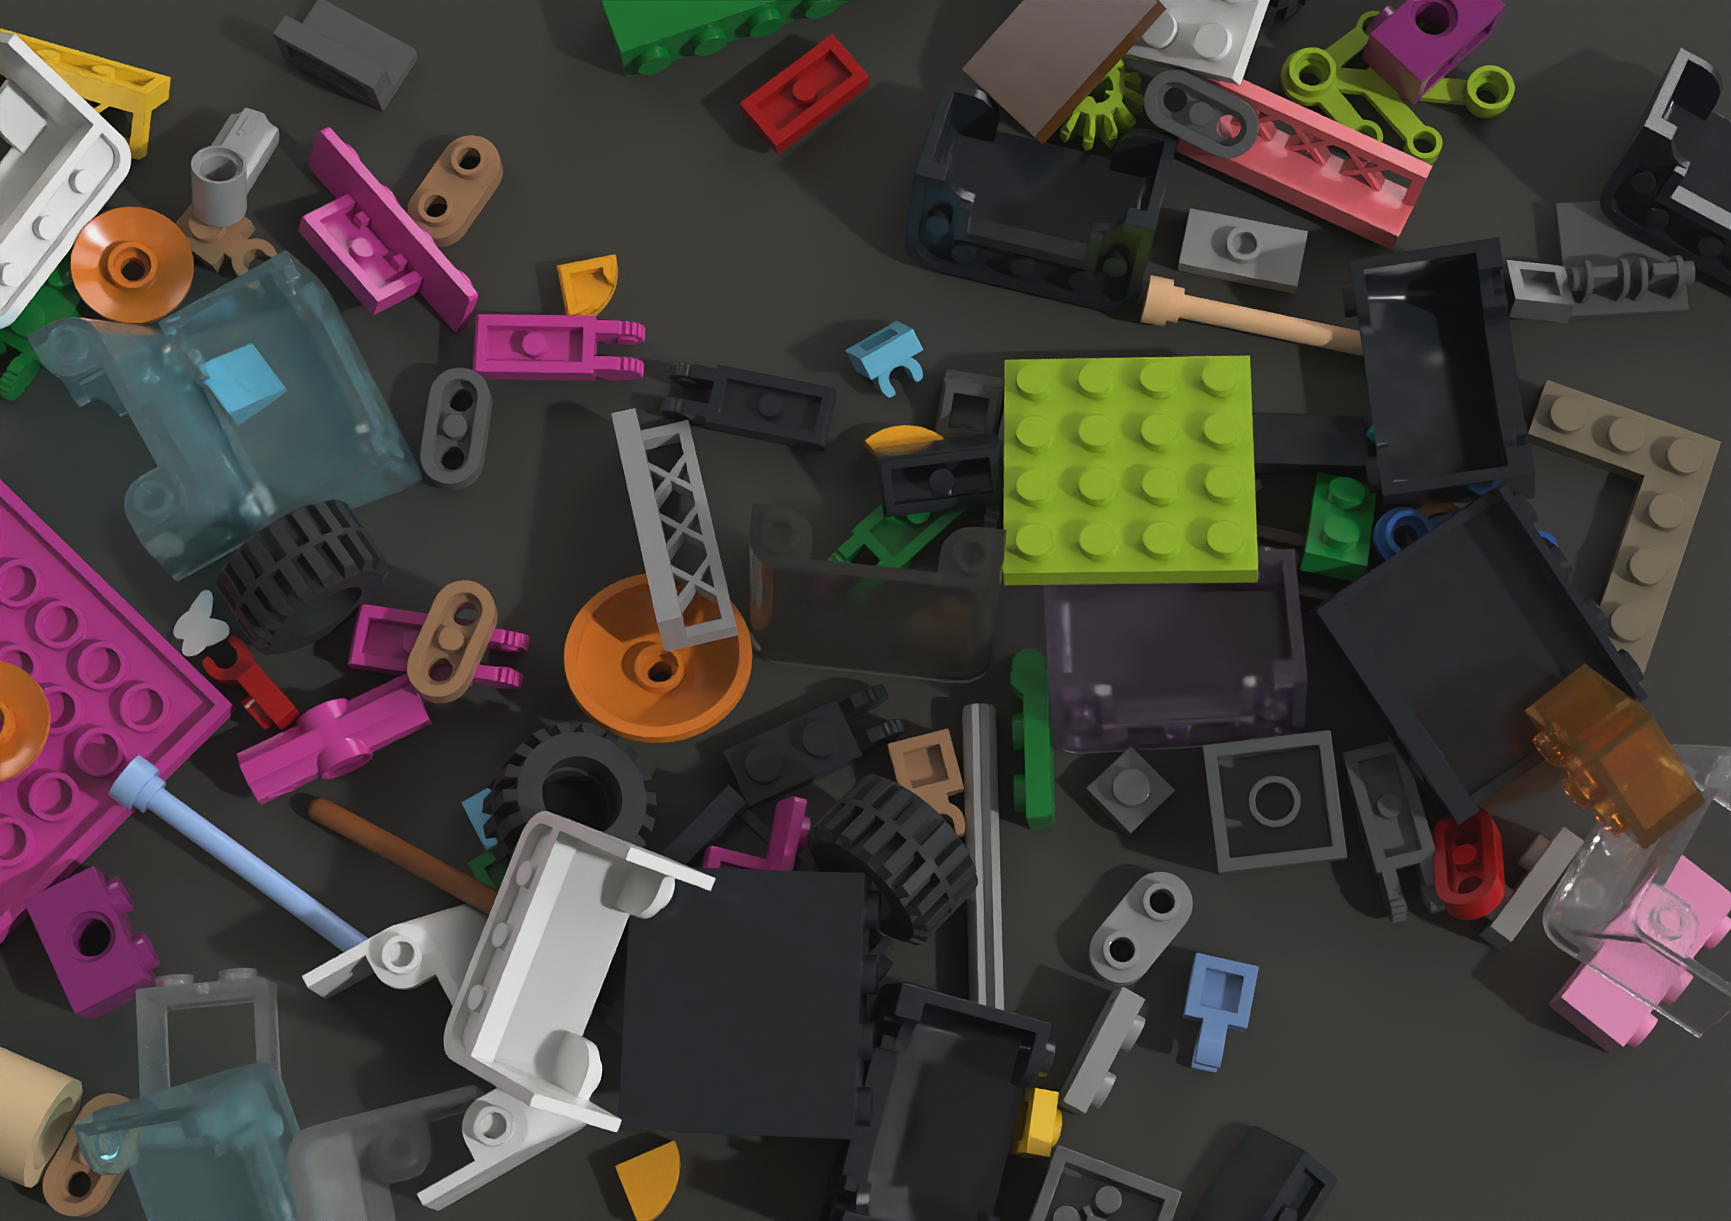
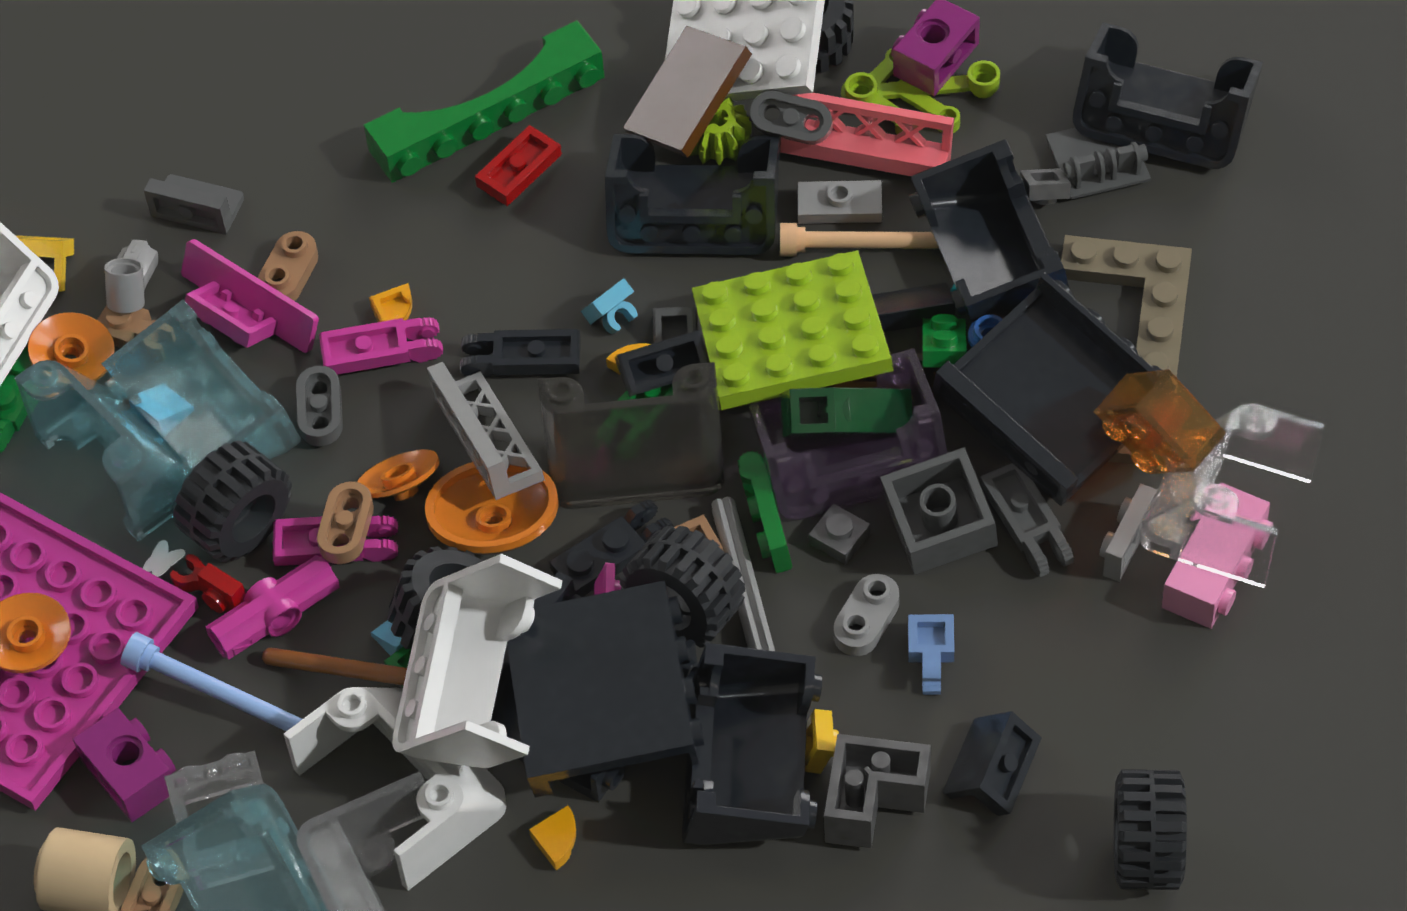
camera: 10 degrees left, 20 degrees down
(542, 568) = (400, 474): none -> orange dish
(1115, 1029) = (863, 673): light grey plate -> none
(1173, 629) = (844, 411): none -> dark green slope
(1469, 875) = (1082, 522): red plate -> none

